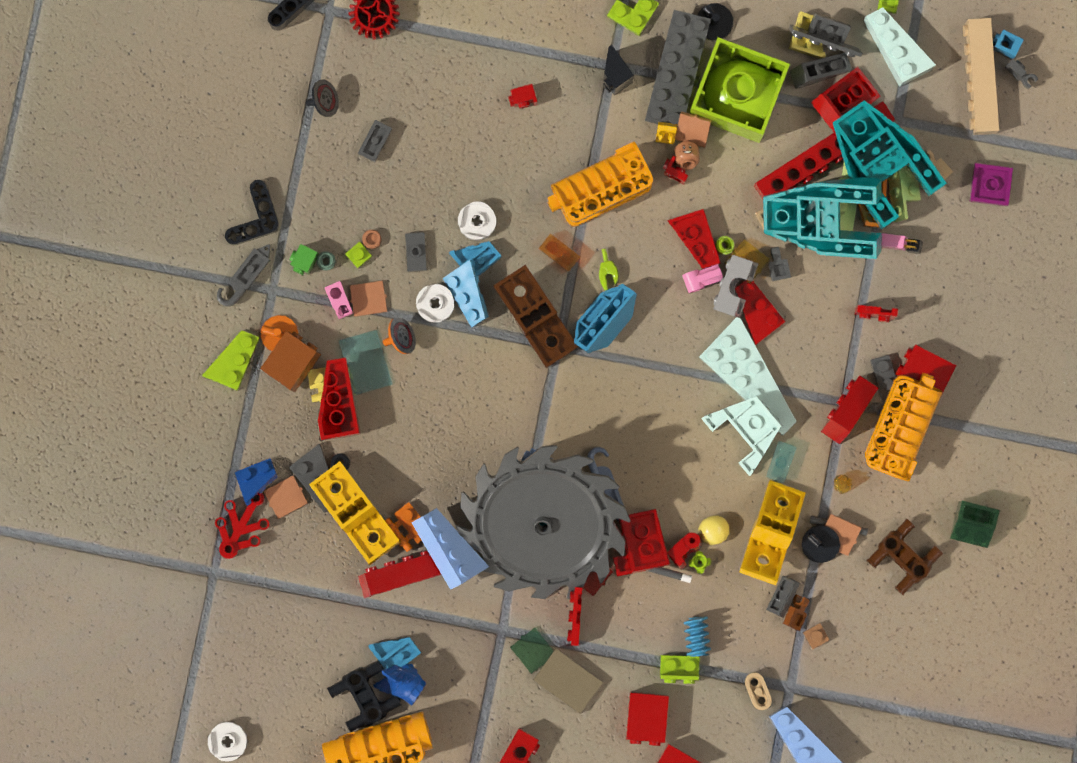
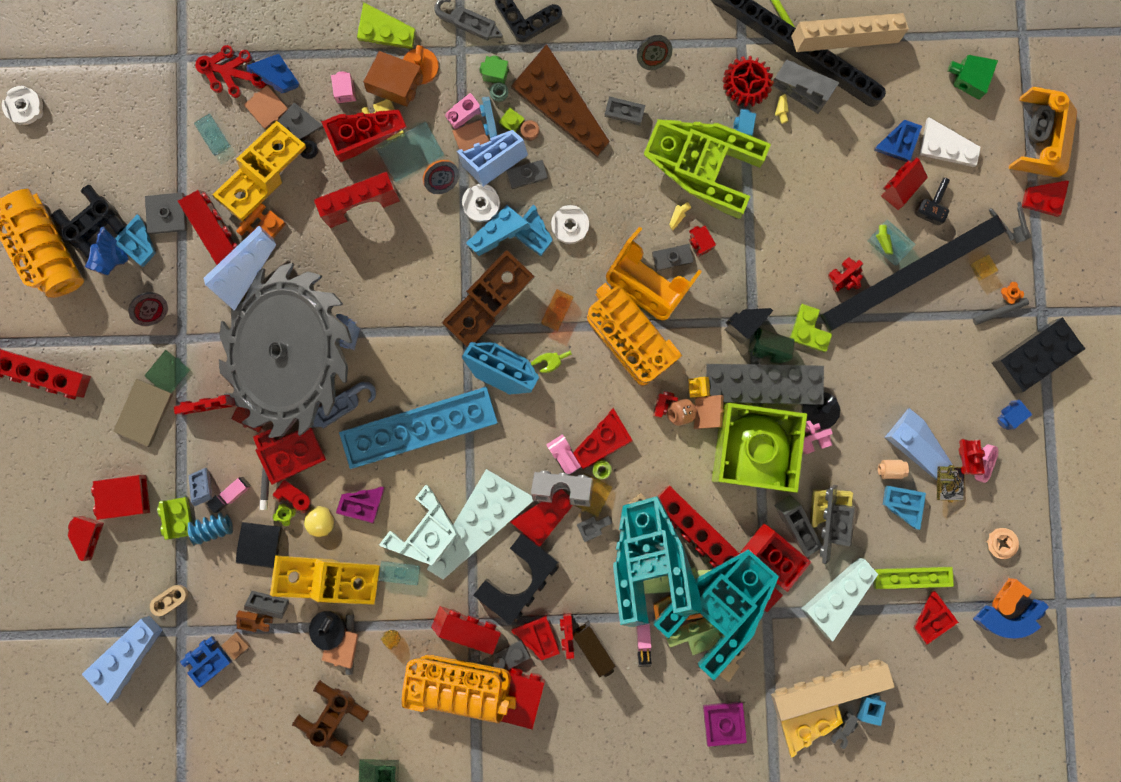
camera: 75 degrees right, 0 degrees up
(285, 413) = (343, 87): none -> bright pink brick
(302, 556) = (212, 134): none -> clear light blue plate
(341, 207) = (554, 95): none -> reddish brown wing
(349, 275) = (486, 110): none -> dark azure wing
(372, 619) = (165, 213): none -> dark grey plate
(394, 280) = (494, 157): none -> light blue wedge
(407, 421) = (374, 189): none -> red arch
(417, 28) = (745, 122): none -> dark azure brick
(439, 83) = (694, 156): none -> lime wedge
(466, 652) = (148, 309): none -> shield
(491, 112) = (679, 214): none -> light yellow bar
(532, 128) = (672, 257): none -> dark grey plate
(555, 160) = (644, 284): none -> light orange windscreen
(642, 53) = (772, 346): none -> clear green slope
(644, 413) = (418, 428): none -> dark azure plate
(655, 636) = (200, 487): none -> sand blue plate
(668, 610) = (230, 494): none -> piece
(707, 484) = (361, 505): none -> magenta wing
(723, 593) = (258, 545): none -> black slope
(740, 27) = (823, 437): none -> bright pink hips
(830, 664) = (208, 667): none -> blue plate
(836, 360) = (510, 605): none -> black arch
(871, 342) = (538, 637): none -> red wing
(894, 289) = (594, 650): none -> dark brown brick
(1012, 111) = (804, 729): none -> yellow wing

